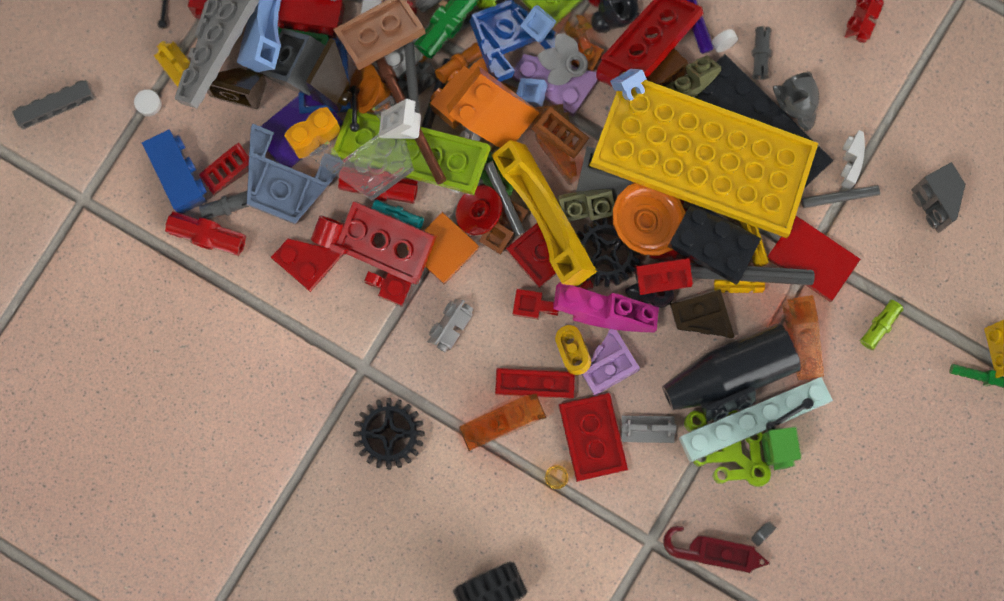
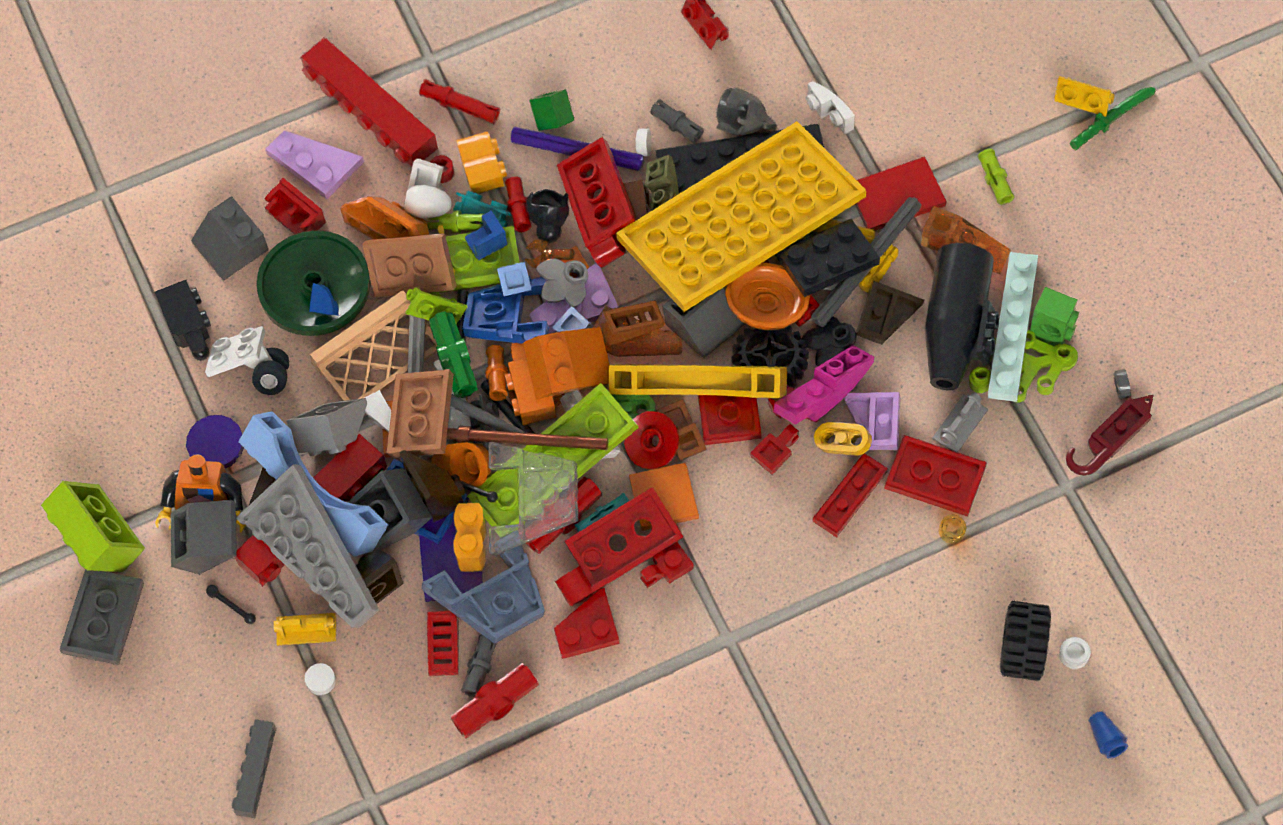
camera: 55 degrees left, 15 degrees down
(175, 171) = (411, 691): blue brick -> none
(388, 410) = (830, 663): black gear -> none
(400, 121) = (524, 442): white slope -> none
(454, 316) = (736, 522): light grey hinge -> none
(502, 421) = (868, 543): clear orange slope -> none
(506, 201) = (673, 413): dark grey bar -> none
(588, 203) = (716, 340): olive slope -> none
(627, 81) = (632, 229): light blue tile -> none
(664, 276) = (830, 316): red hinge -> none
(806, 404) = (1028, 274): black hinge -> none
(840, 196) = (857, 135): dark grey bar -> none
(940, 196) = (916, 57): dark grey slope -> none

